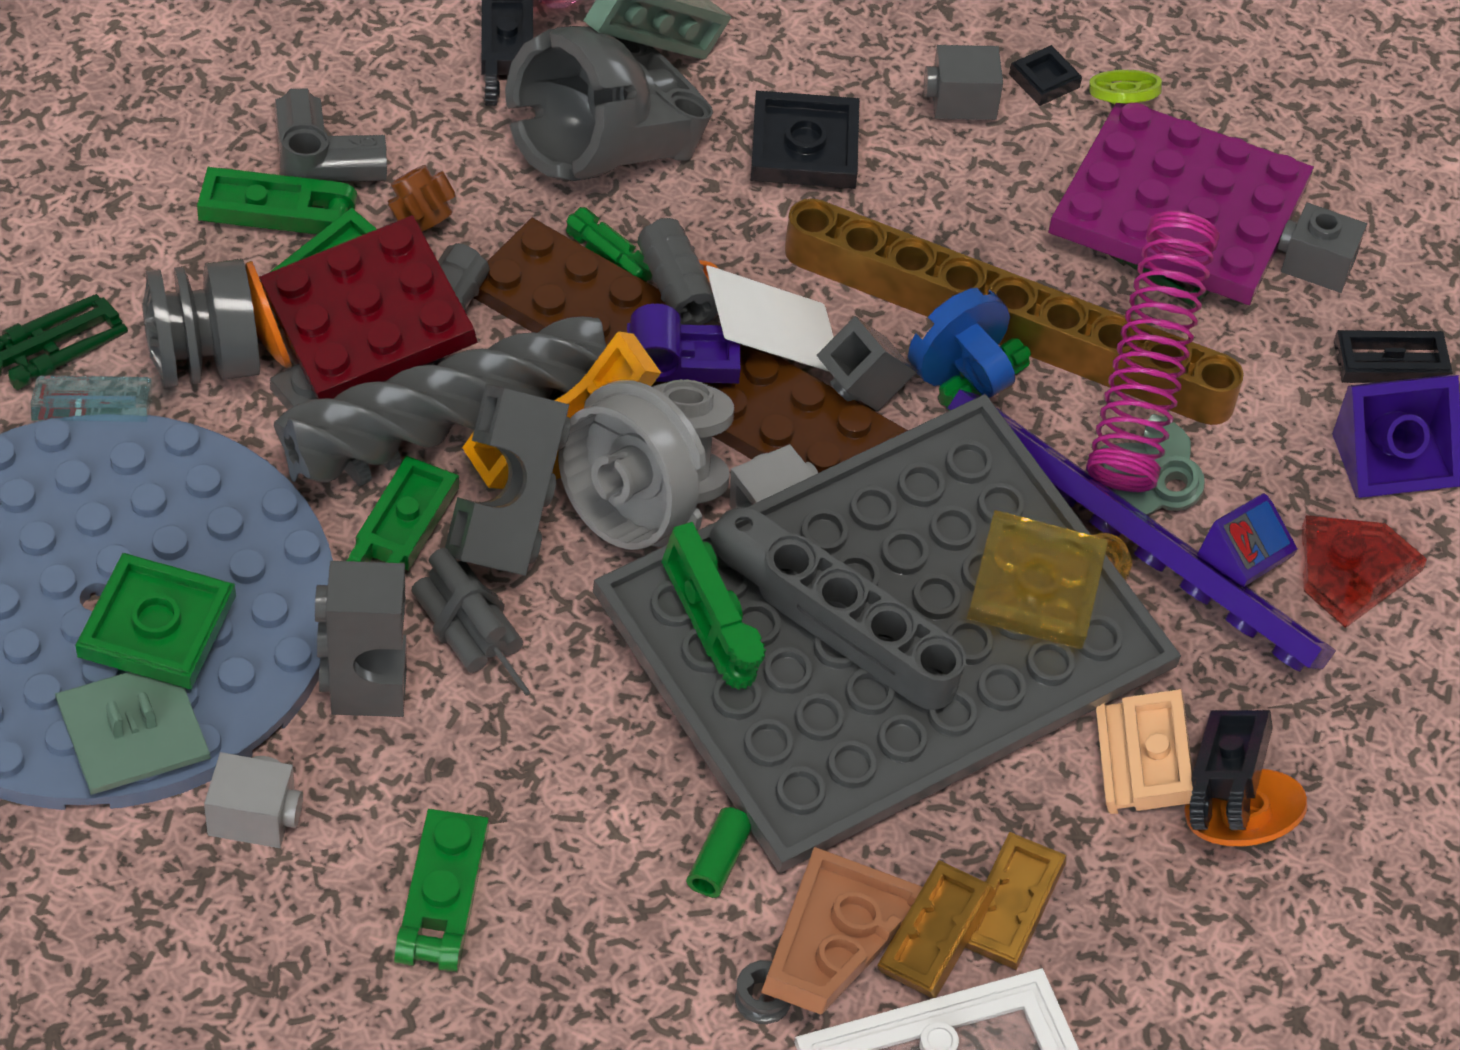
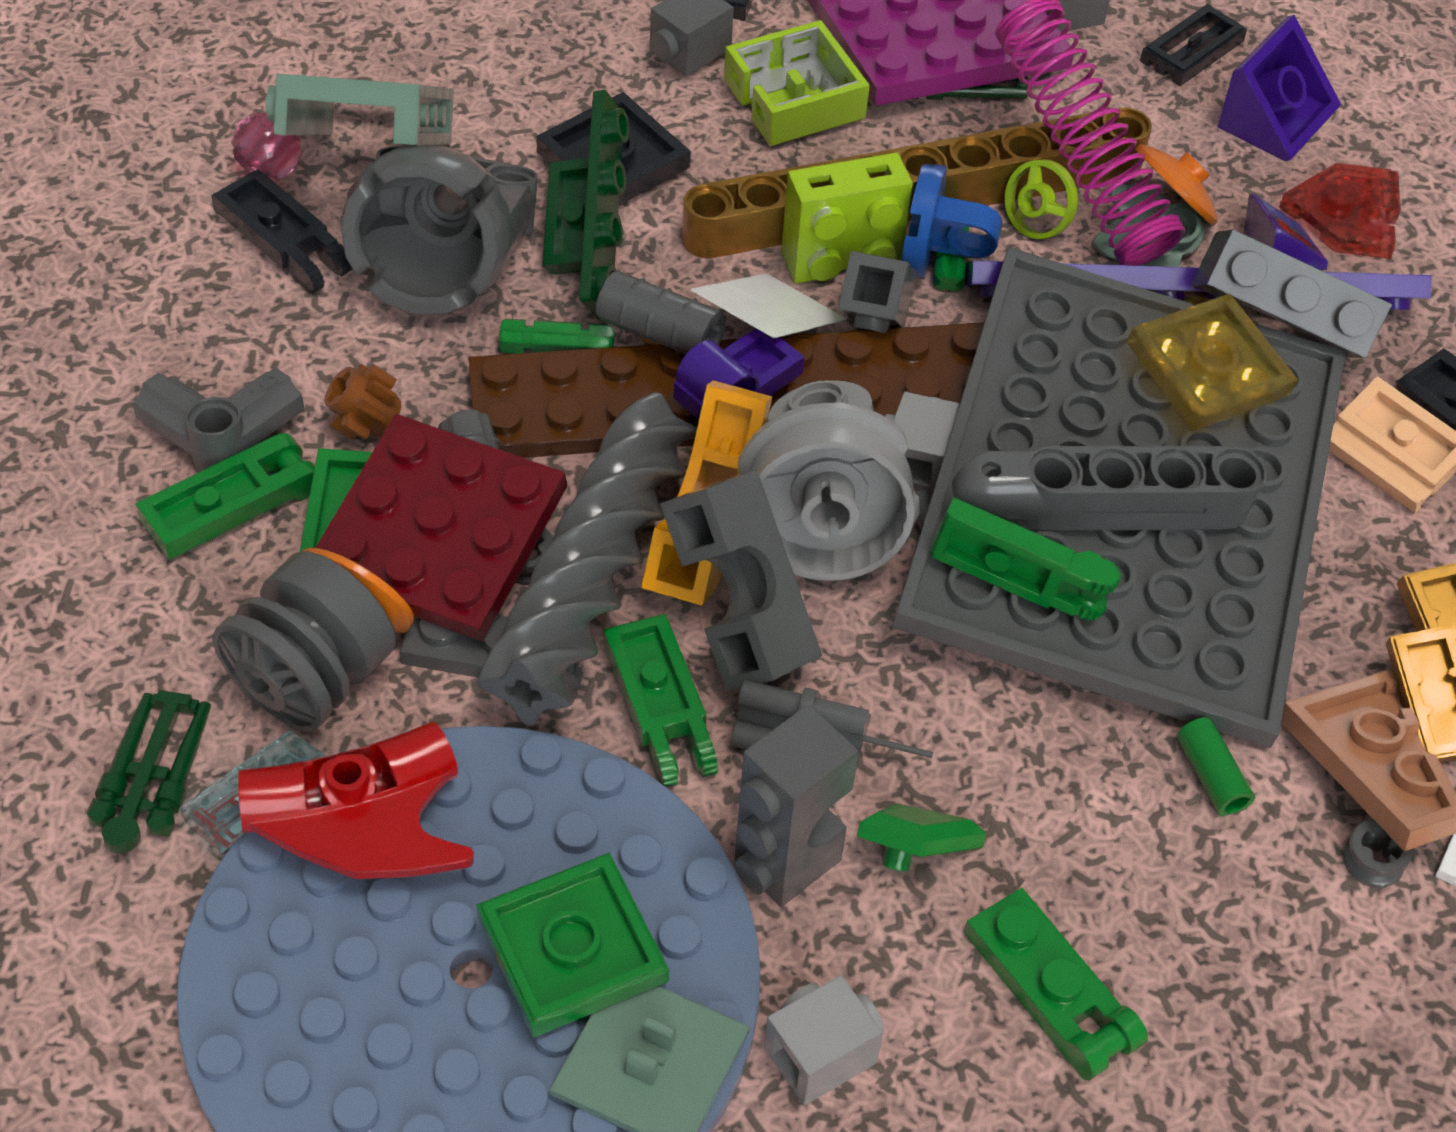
camera: 40 degrees left, 0 degrees up
(121, 444) = (358, 807): none -> red pin
(460, 730) = (918, 832): none -> green piece
(730, 157) = (584, 204): none -> dark green bracket
(893, 290) = (845, 216): none -> lime piece
(1003, 174) = (796, 82): none -> lime piece
(1079, 381) = (1049, 202): none -> lime piece
(1185, 604) = (1291, 292): none -> arch
(1207, 445) = (1184, 177): none -> orange dish

